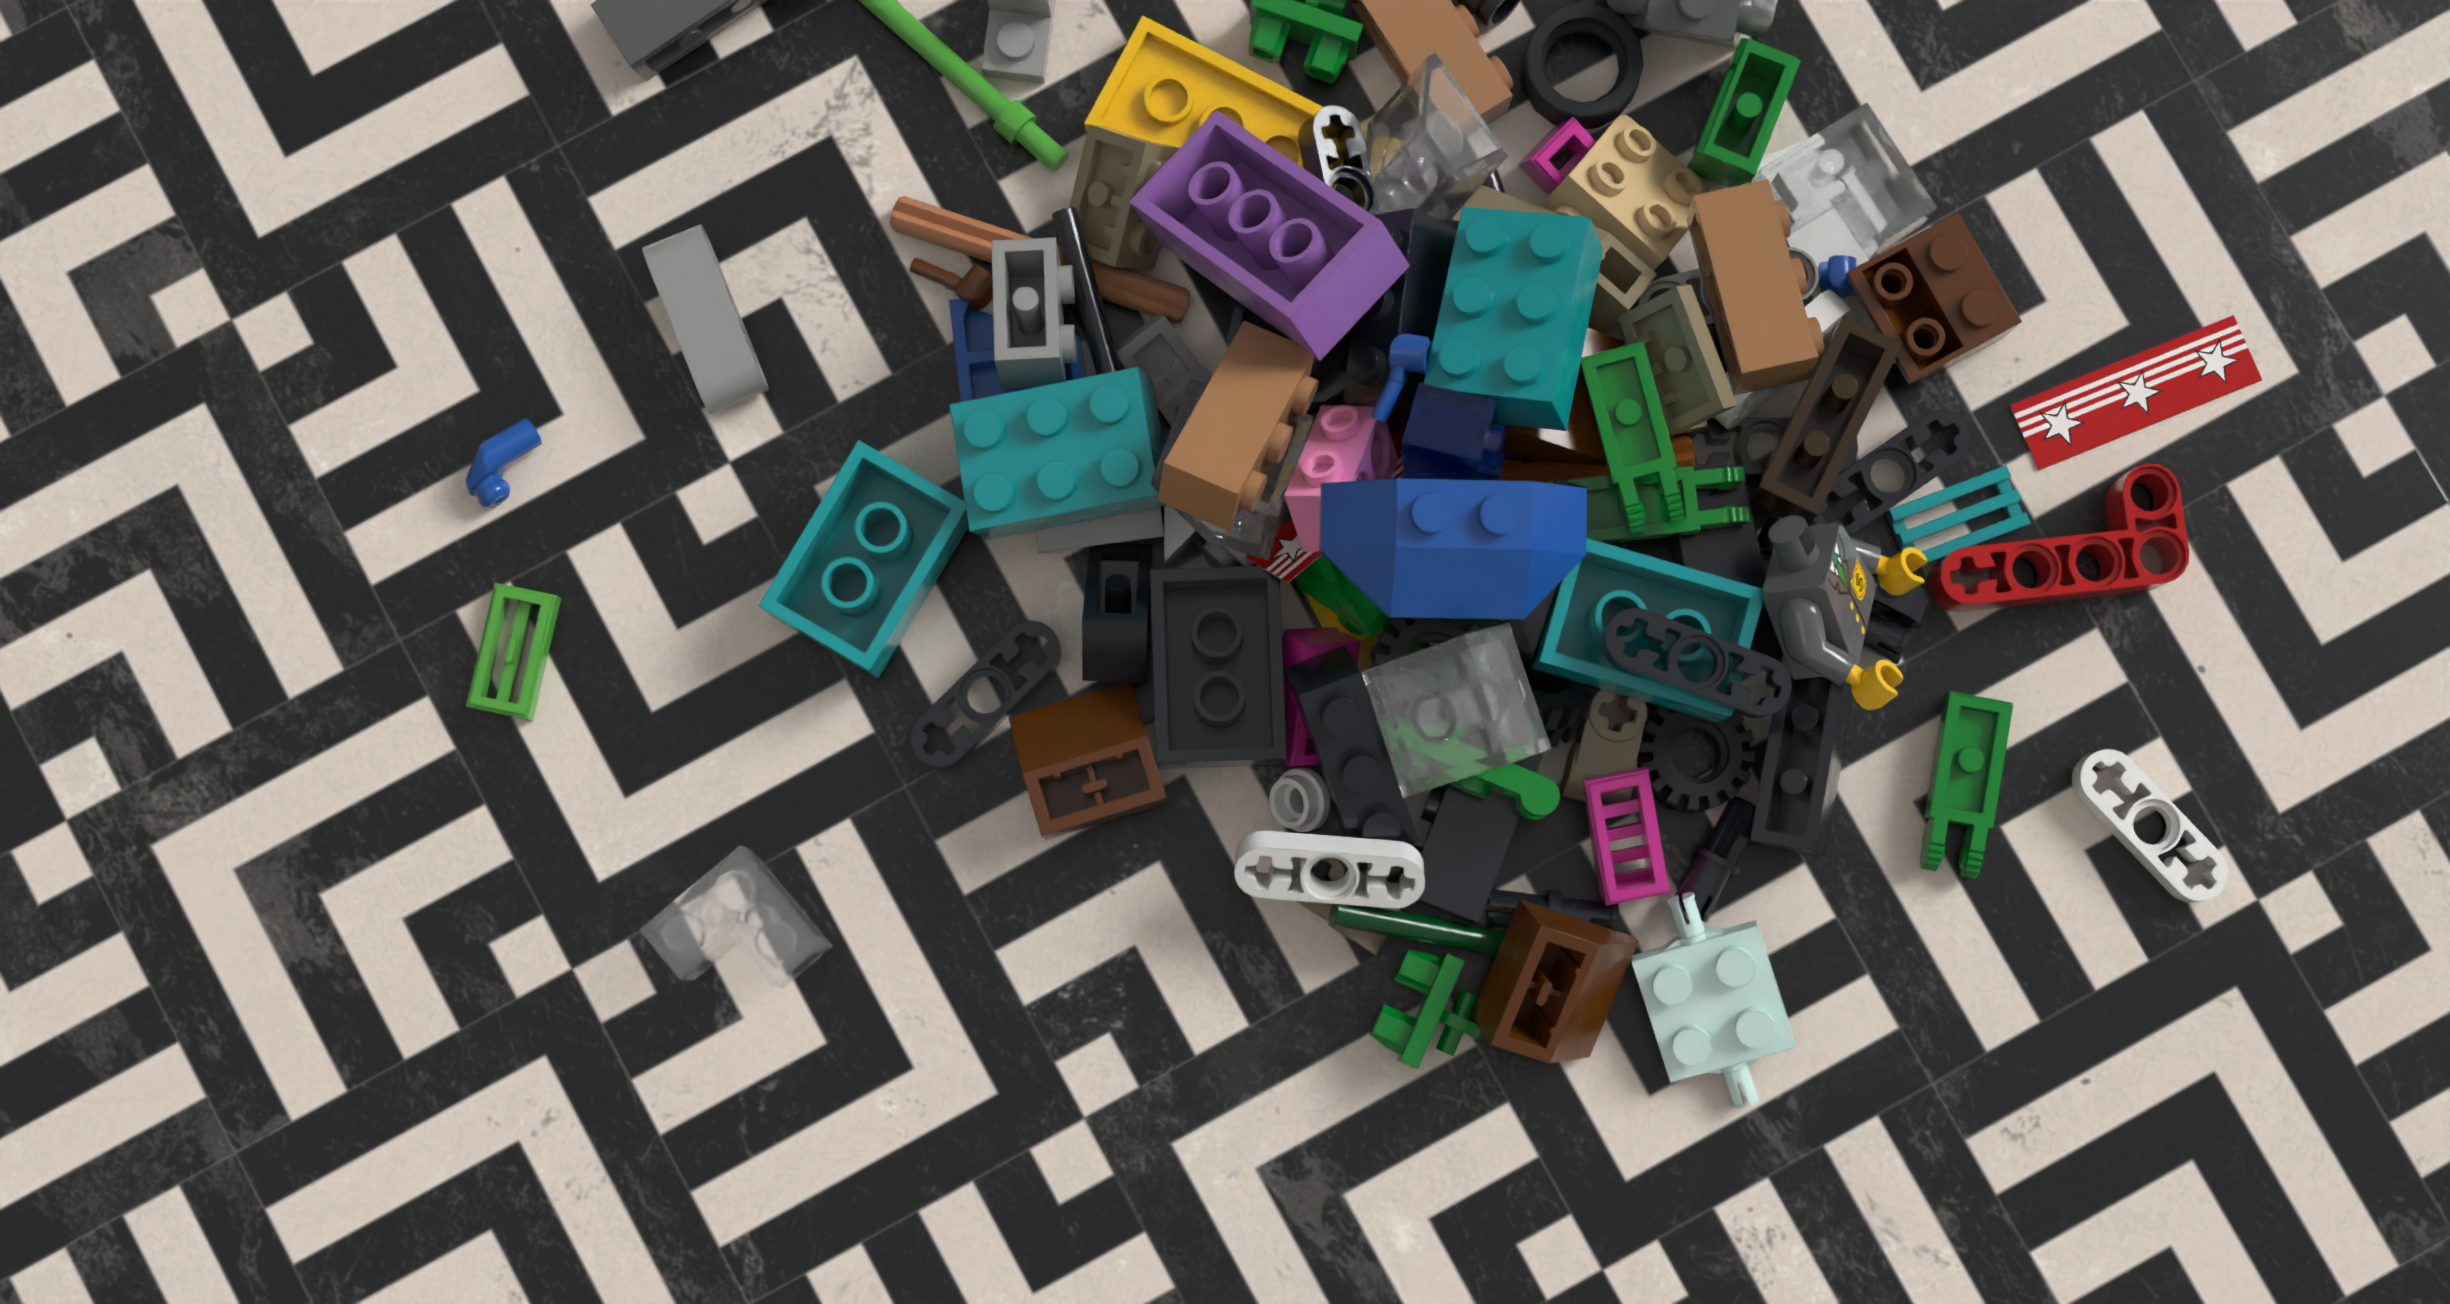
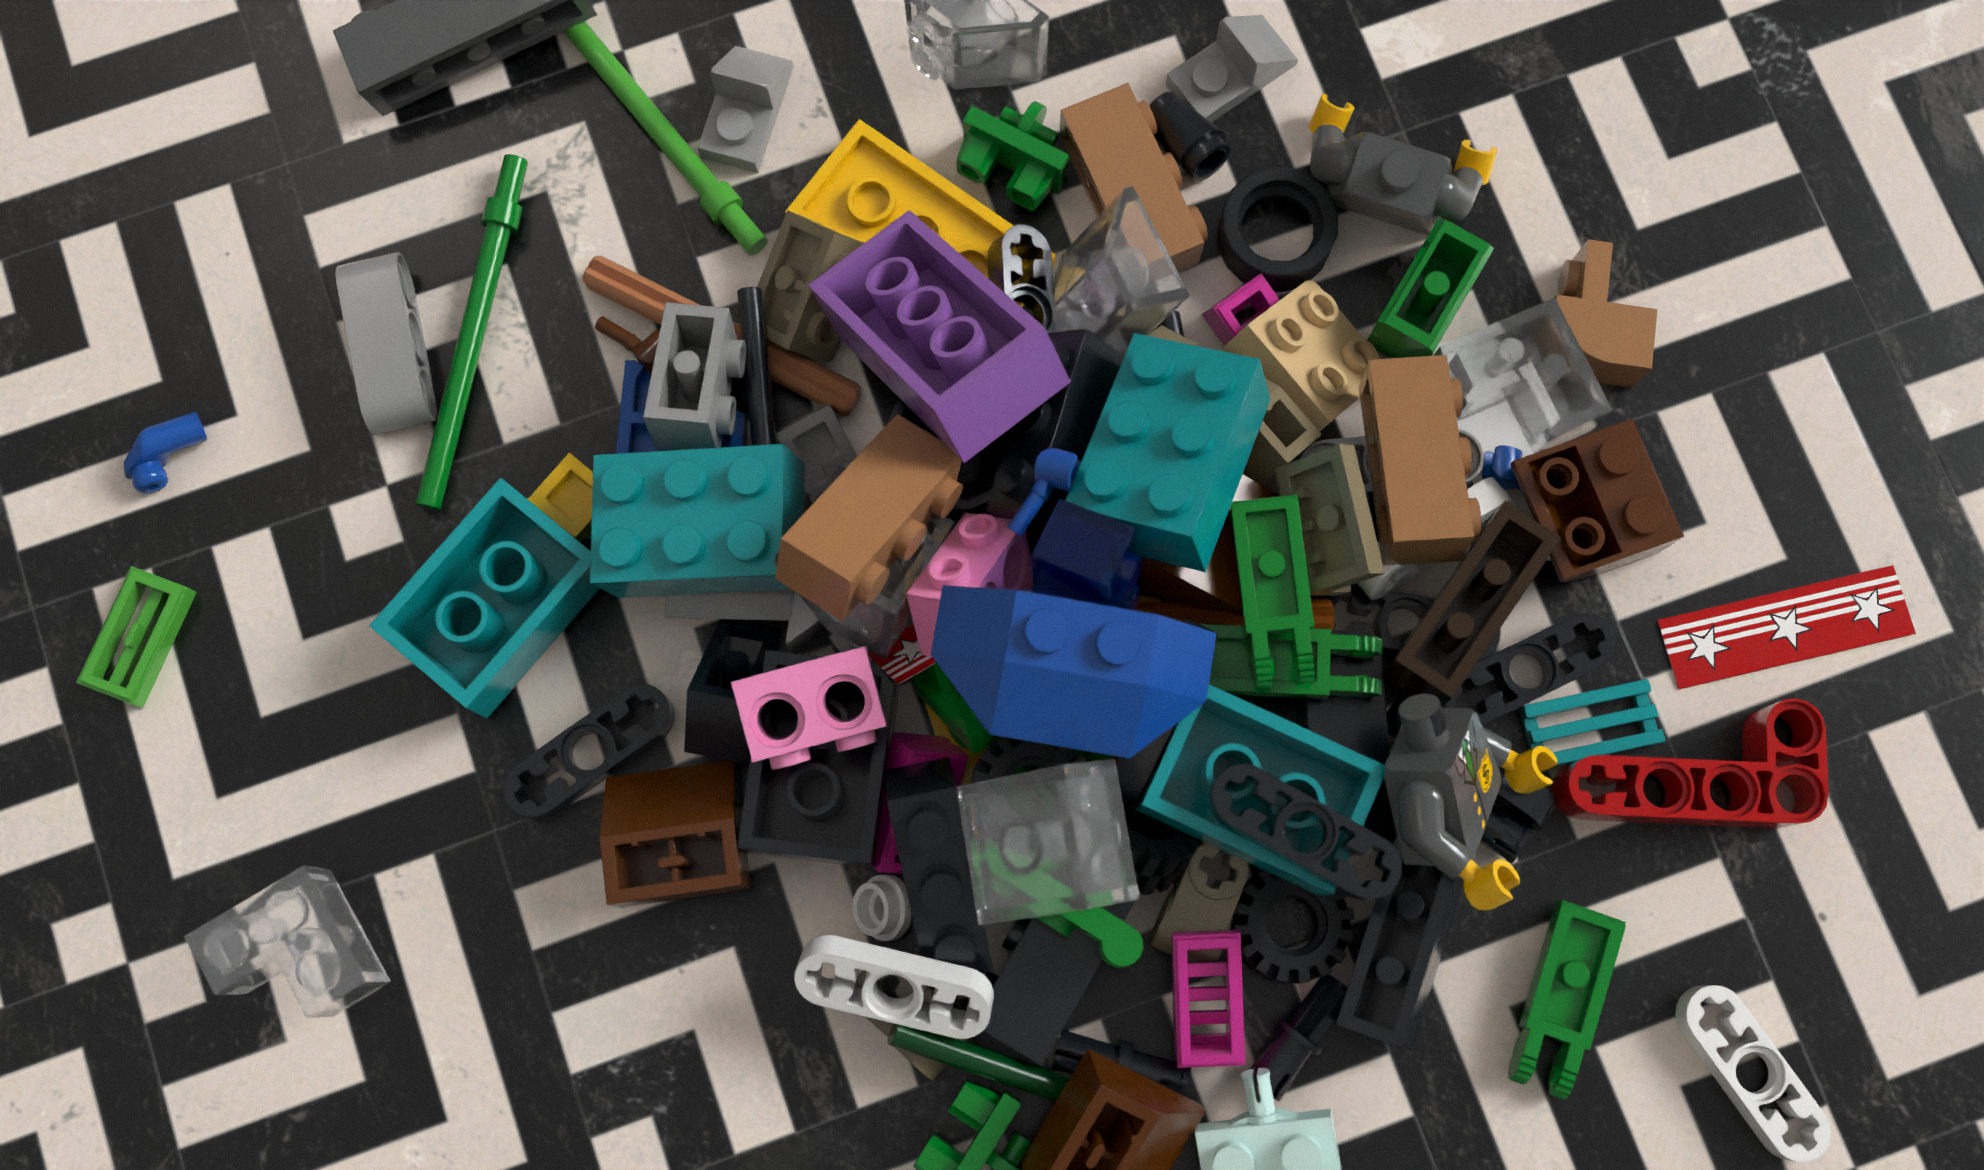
camera: 10 degrees right, 5 degrees down
(794, 173) = (501, 219): none -> green bar
(923, 445) = (567, 497): none -> yellow plate
(1201, 599) = (806, 689): none -> bright pink brick
(1926, 129) = (1611, 335): none -> medium nougat brick

